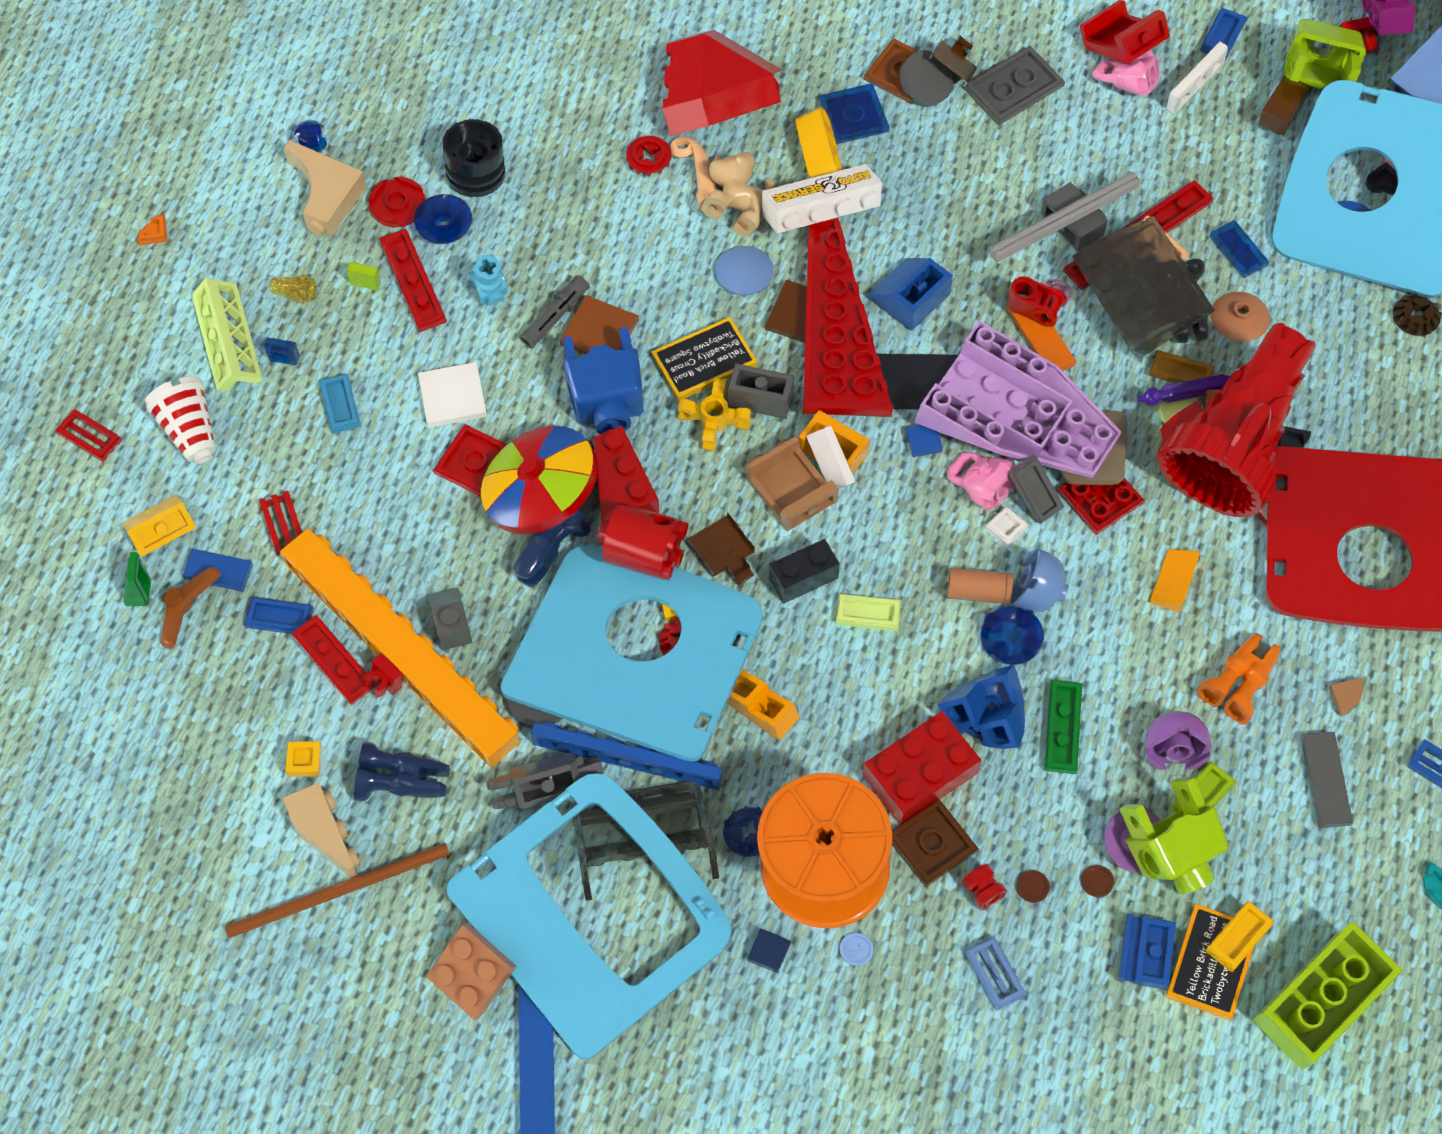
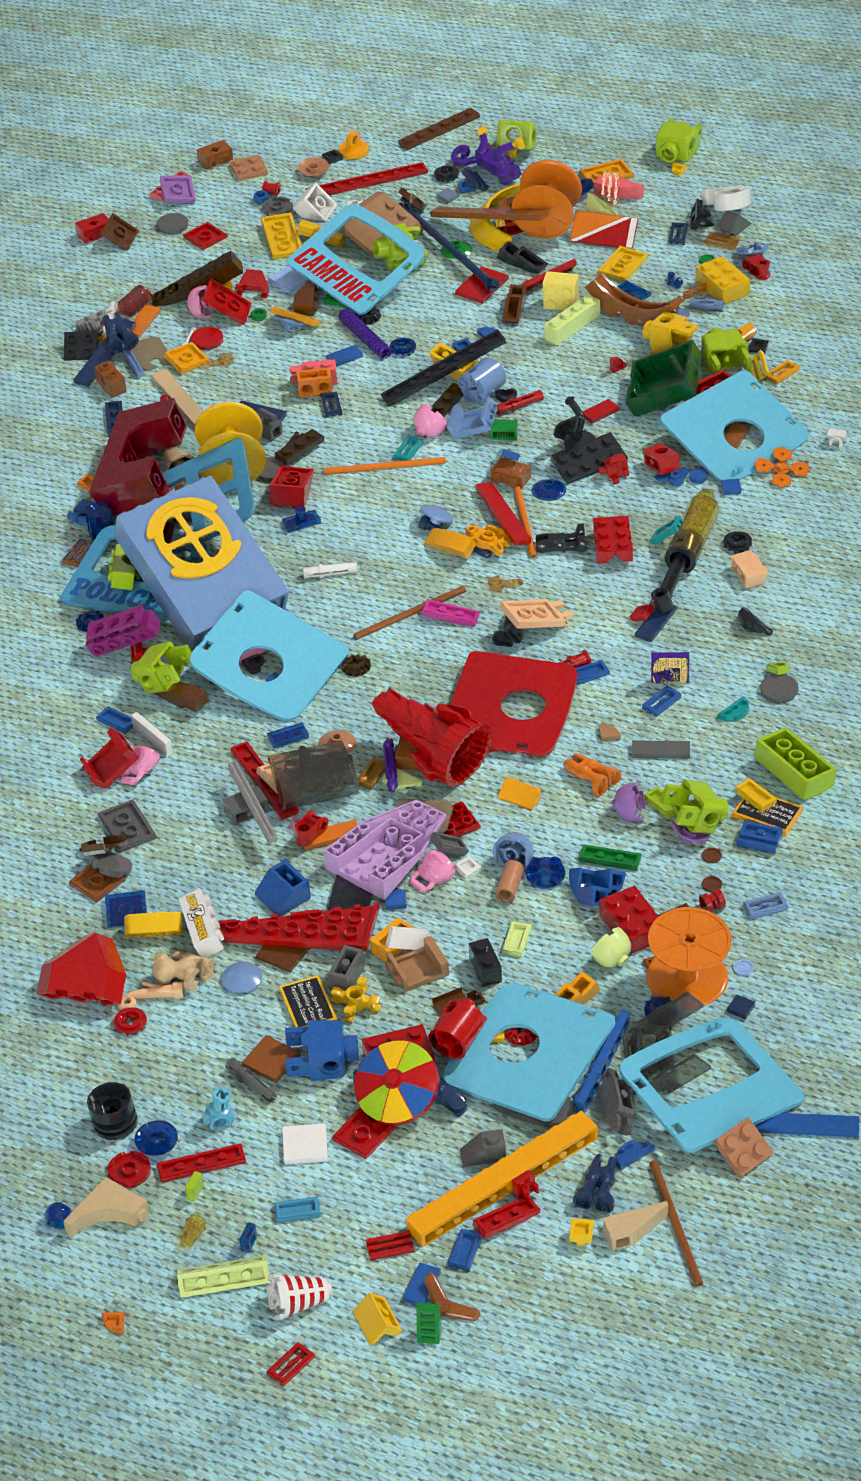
camera: 80 degrees left, 20 degrees down
(465, 816) = (632, 1152): none -> blue tile
(848, 745) = (612, 949): none -> yellowish green cylinder

